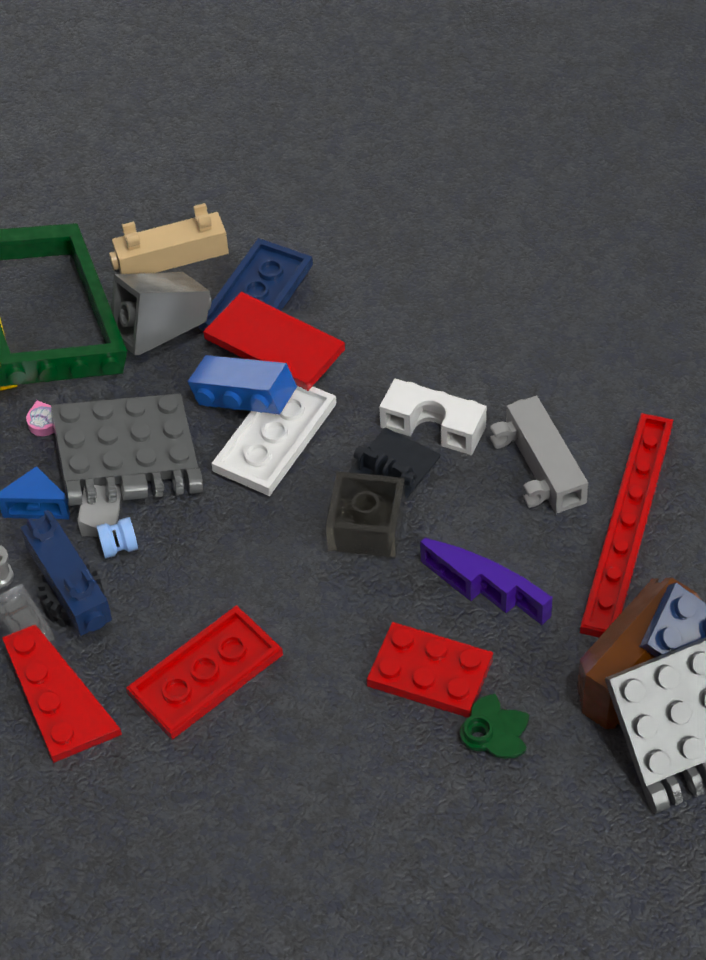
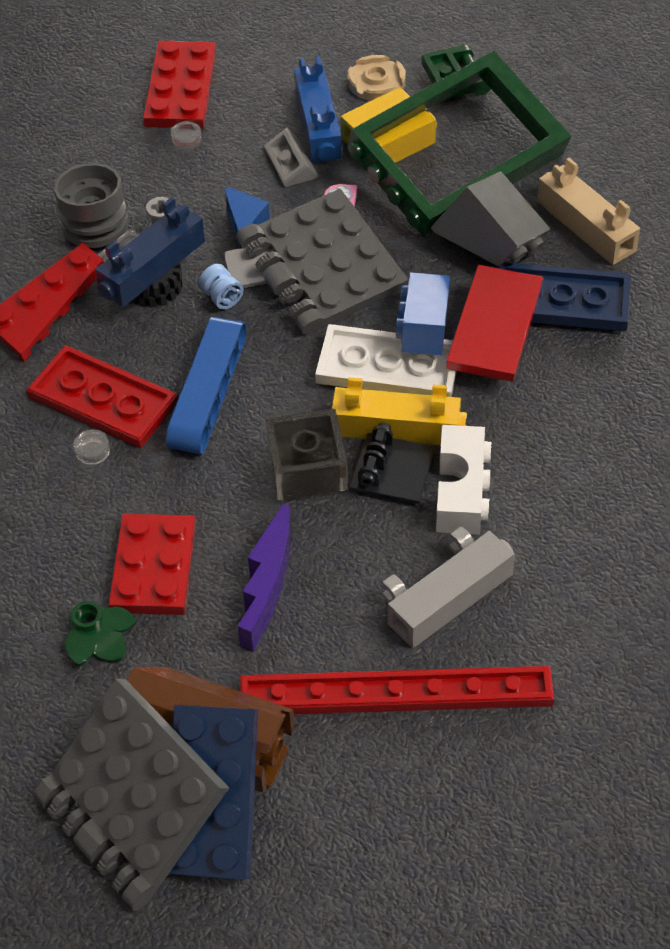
camera: 70 degrees right, 0 degrees up
(238, 577) = (206, 386): none -> blue beam
(268, 691) = (91, 447): none -> clear tile
(350, 428) = (410, 415): none -> yellow brick

